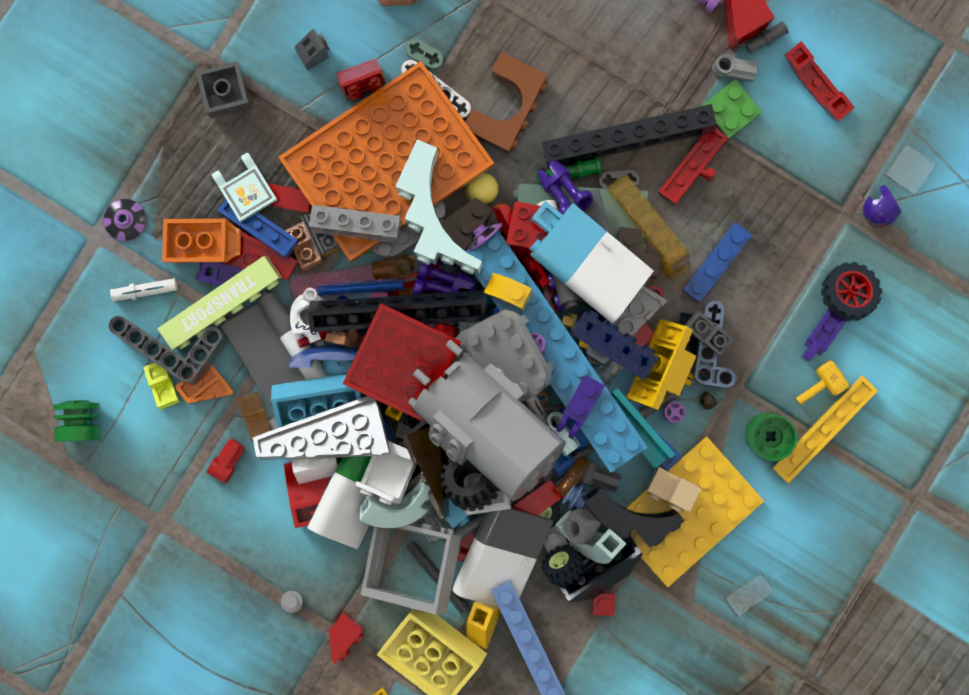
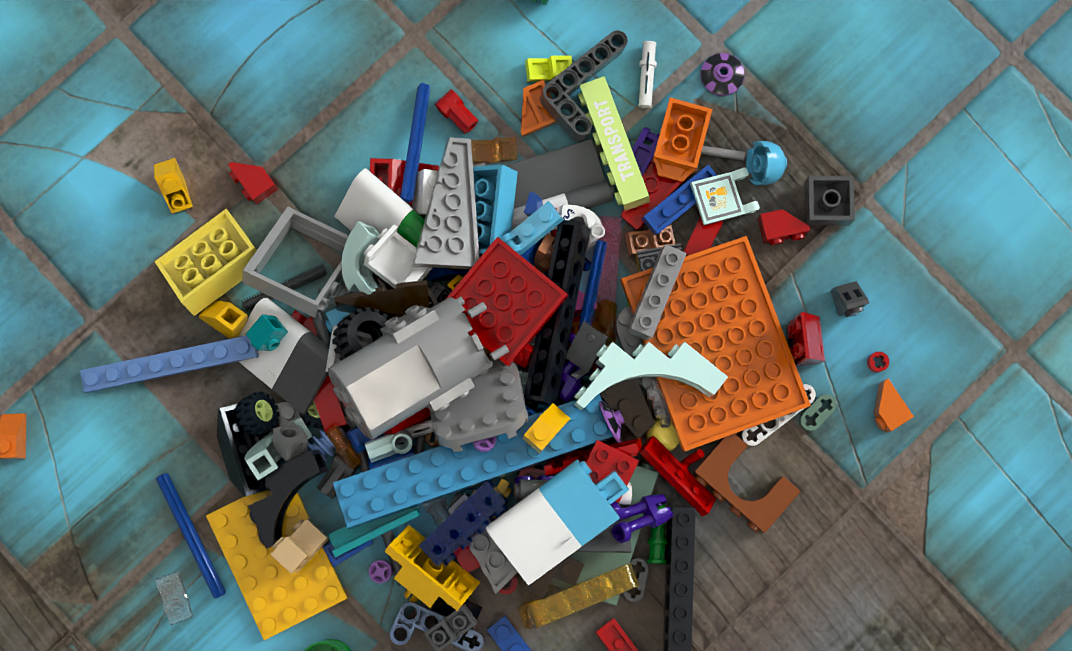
camera: 105 degrees right, 5 degrees down
(201, 195) = (724, 153): none -> light grey bar
(202, 157) = (765, 163): none -> medium azure cylinder
(258, 129) = (780, 225): none -> red slope
(267, 490) = (415, 143): none -> blue axle
(291, 601) = (301, 140): light grey plate -> none
(324, 353) = (533, 228): none -> medium azure plate
(359, 5) = (885, 361): none -> red bush
(425, 276) = (584, 349): none -> dark grey piece
(456, 197) = (659, 403): none -> clear slope
(487, 577) = (266, 333): none -> teal brick
(515, 166) = (678, 475): none -> red plate
(581, 404) = (410, 471): dark purple hinge -> none
(604, 604) = (208, 446): red plate -> none
(689, 596) = (191, 535): none -> blue axle
(707, 401) = (383, 610): dark brown hinge -> none

